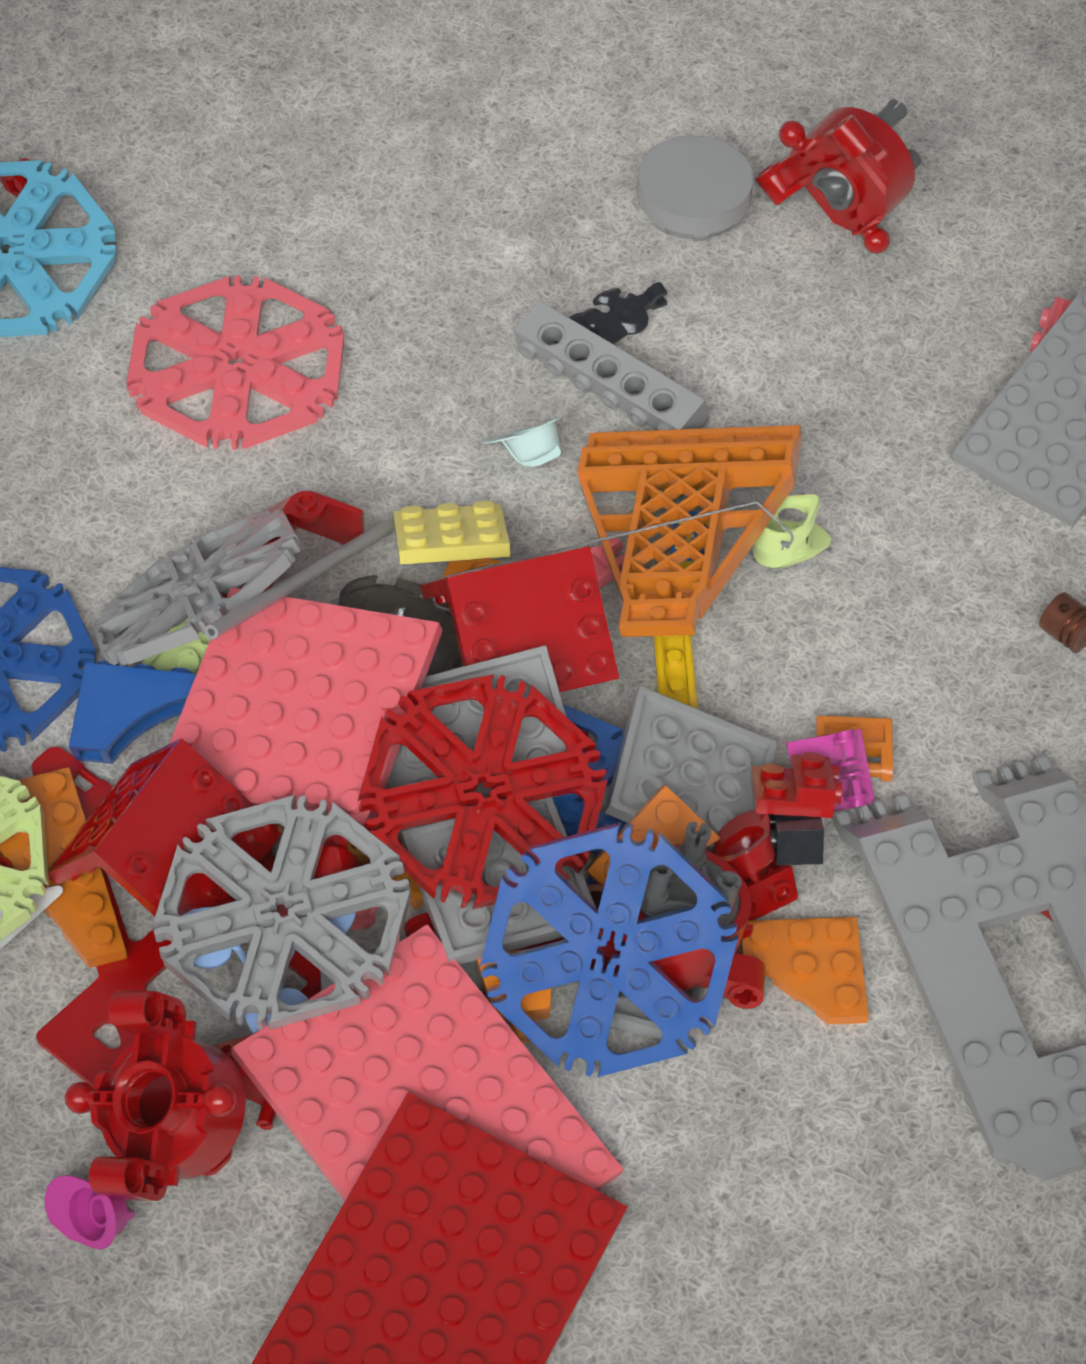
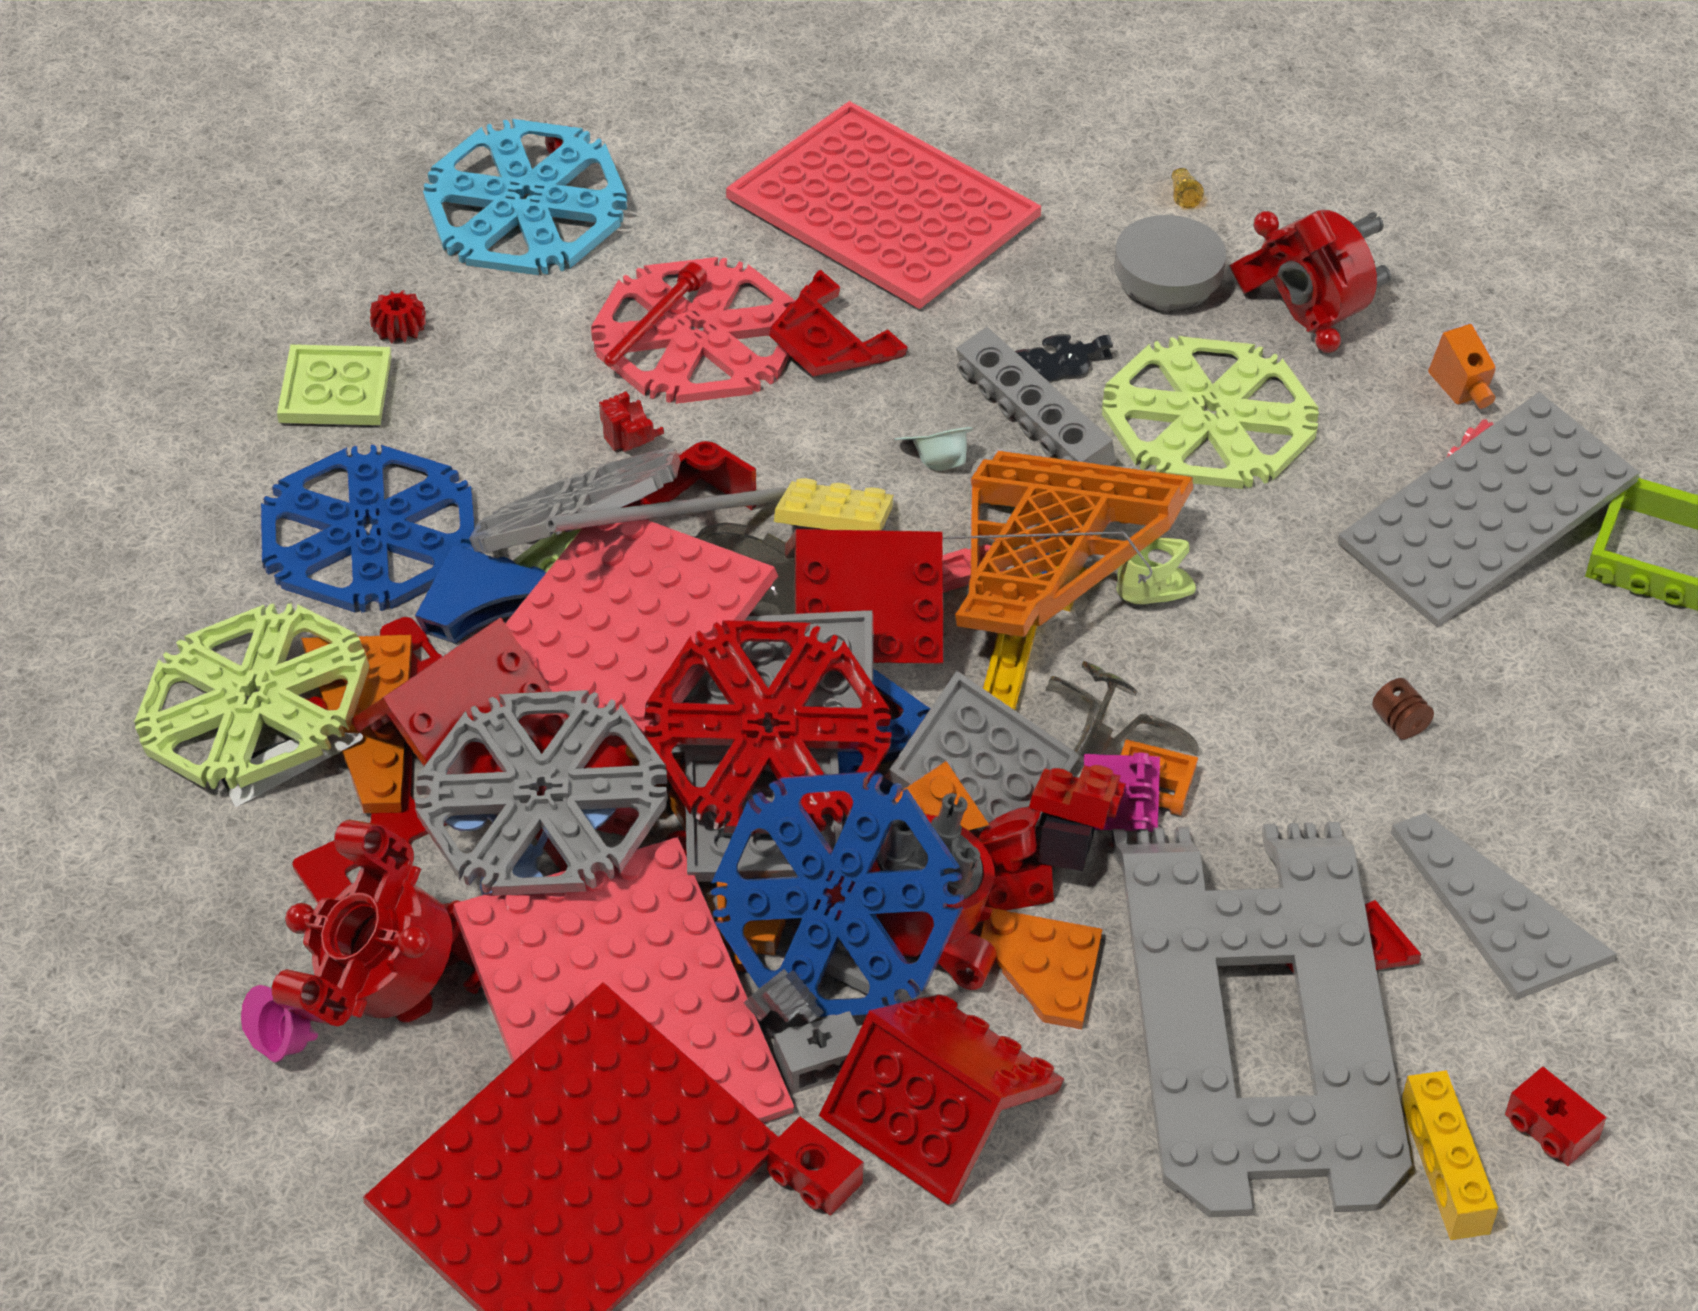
camera: 15 degrees right, 5 degrees down
(204, 486) = (626, 423): none -> red hair
(213, 309) = (689, 279): none -> red piece
(370, 348) = (822, 341): none -> red wing
(379, 178) = (884, 203): none -> coral plate
(583, 1068) = (783, 1003): none -> flat silver hair
(631, 1107) = (814, 1051): none -> light grey brick
(655, 1206) = (807, 1147): none -> red brick
(682, 99) = (1186, 189): none -> clear yellow cone
(754, 1122) = (930, 1089): none -> red bracket
(772, 362) = (1193, 425): none -> yellowish green plate
(789, 720) = (1097, 736): none -> clear smoke plant
(1020, 244) = (1463, 367): none -> orange torso

